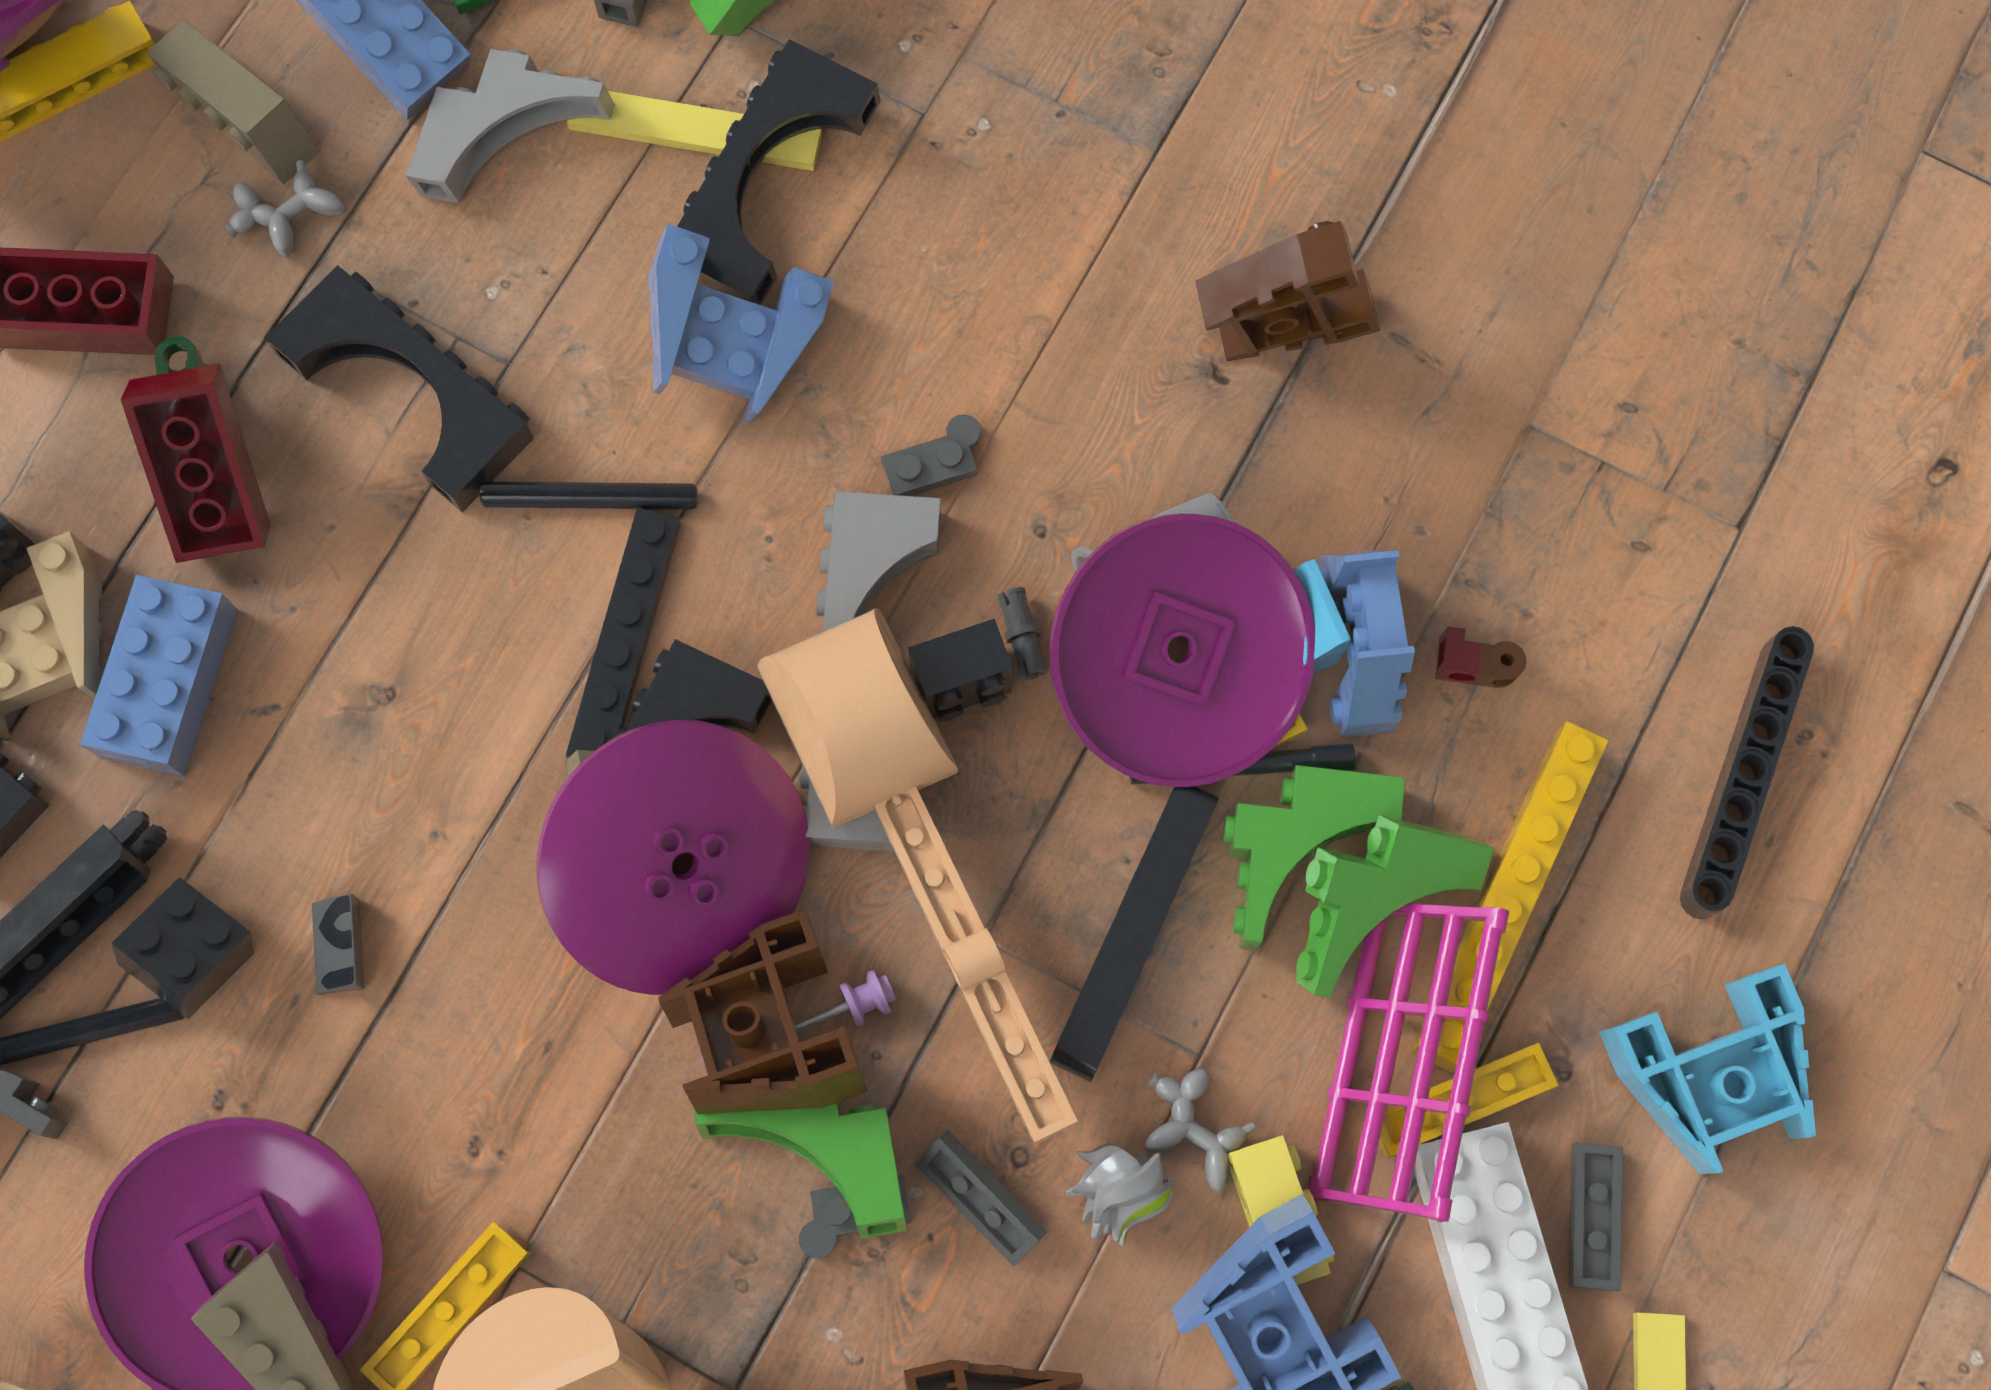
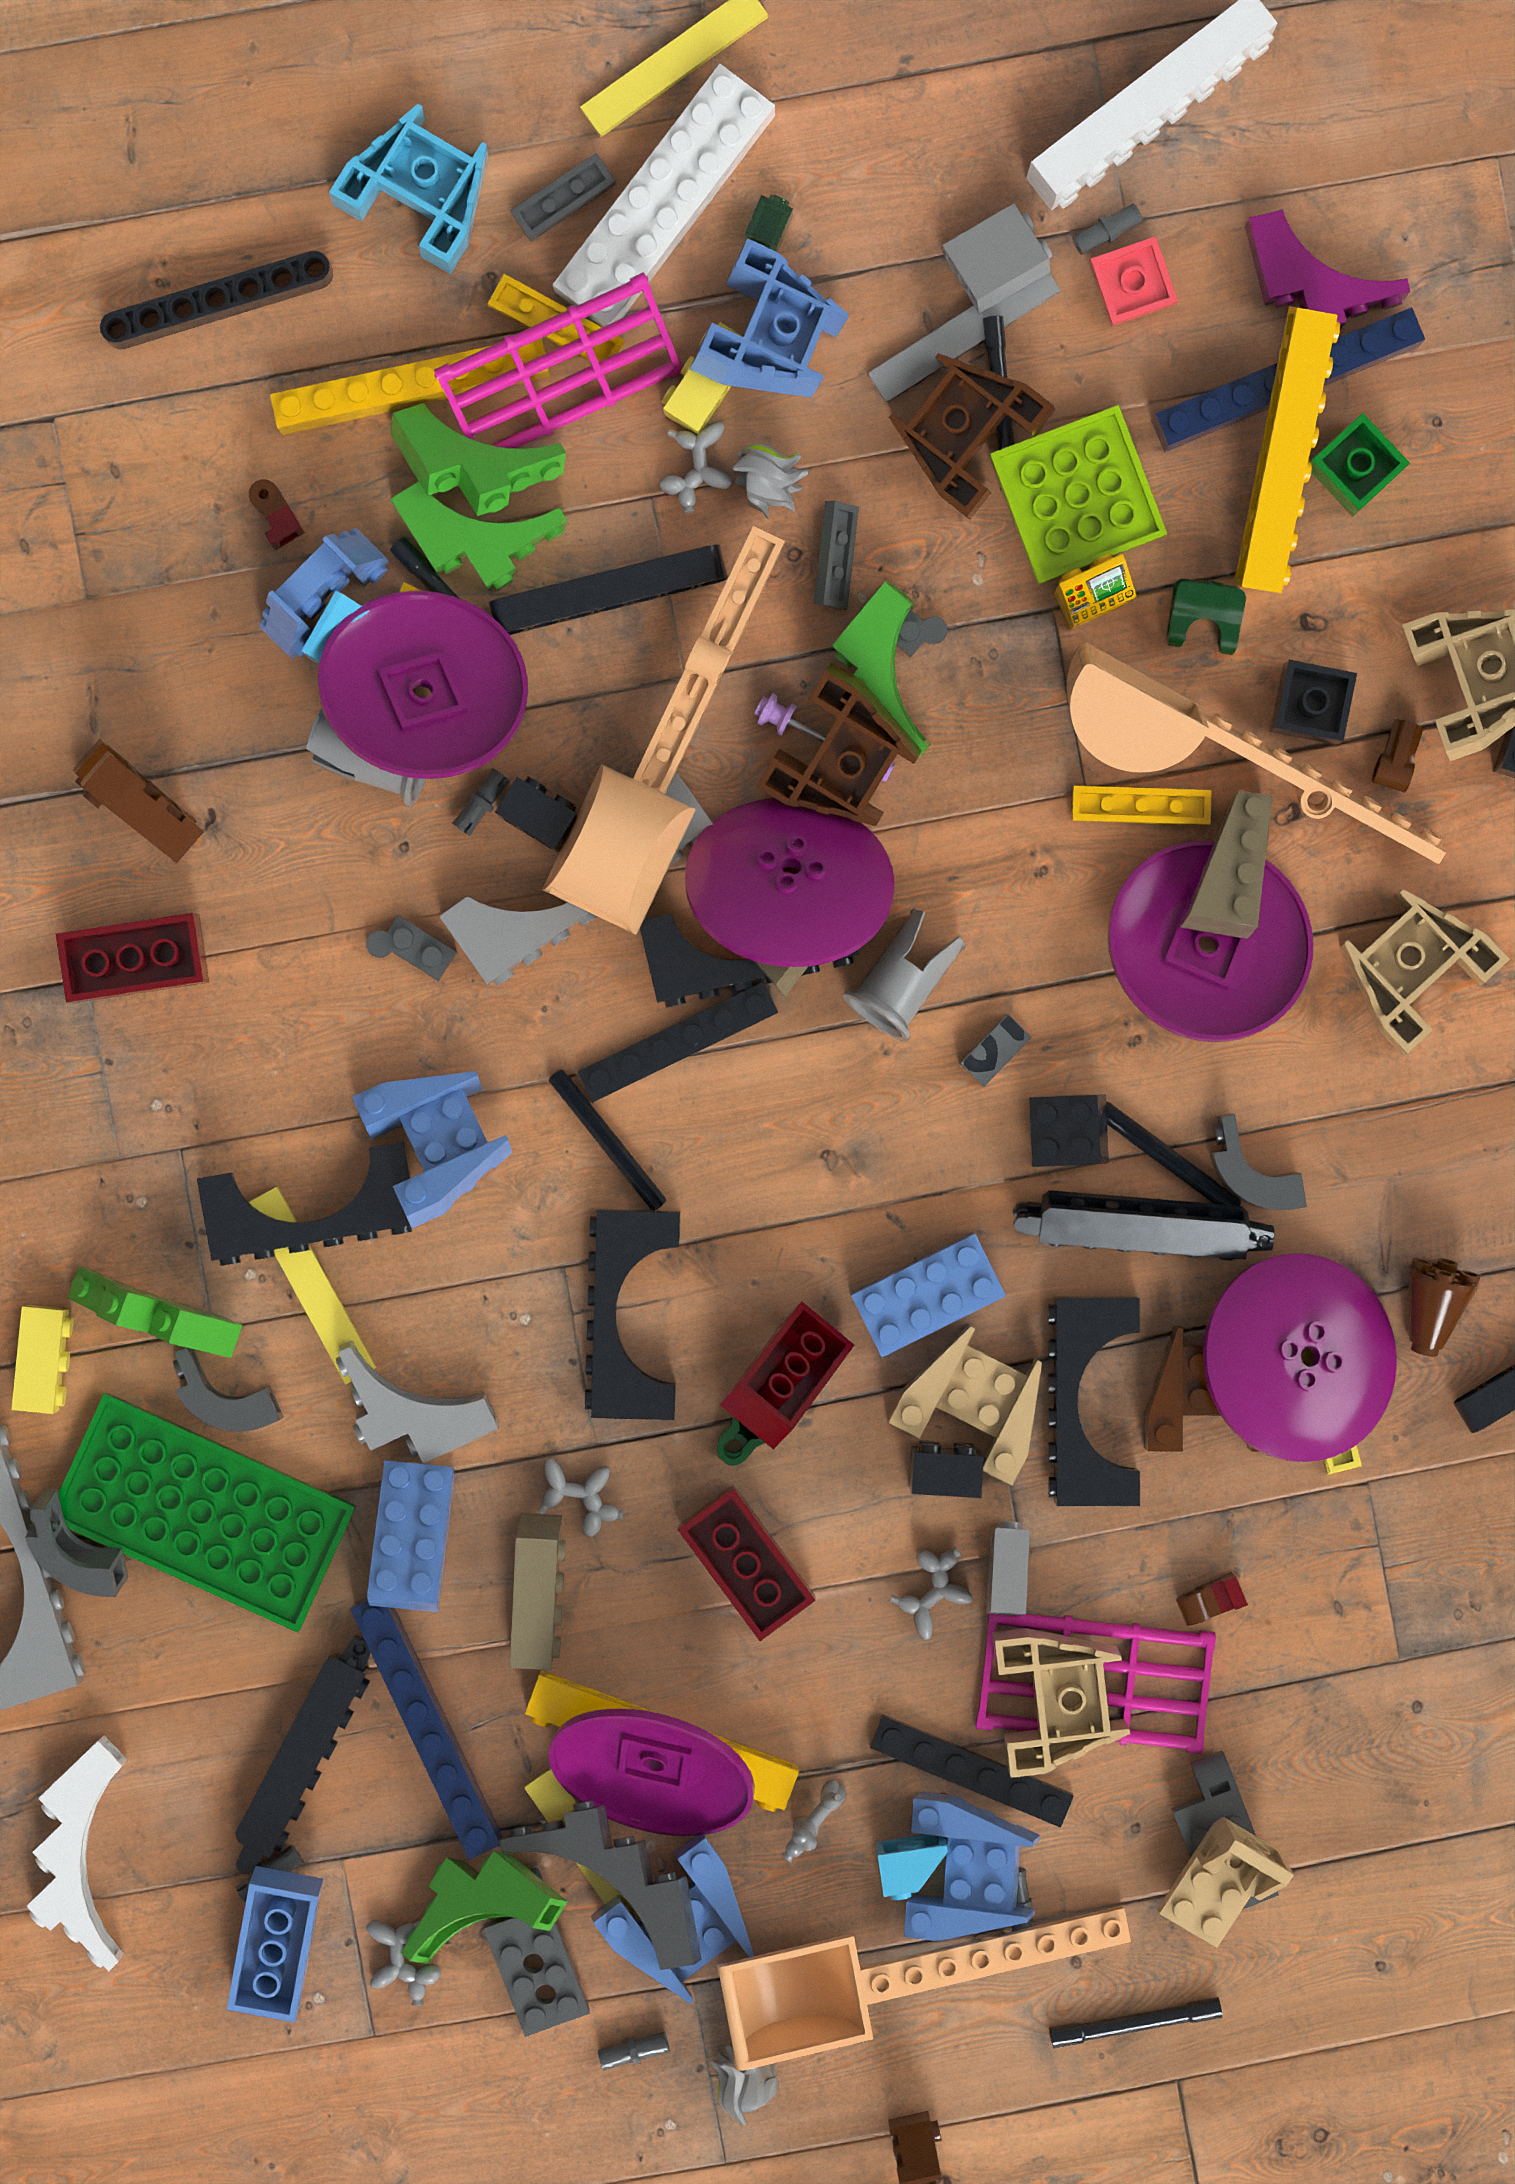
camera: 130 degrees left, 15 degrees up
(478, 883) = (897, 987): none -> light grey piece
(1138, 194) = (132, 958): none -> dark red brick

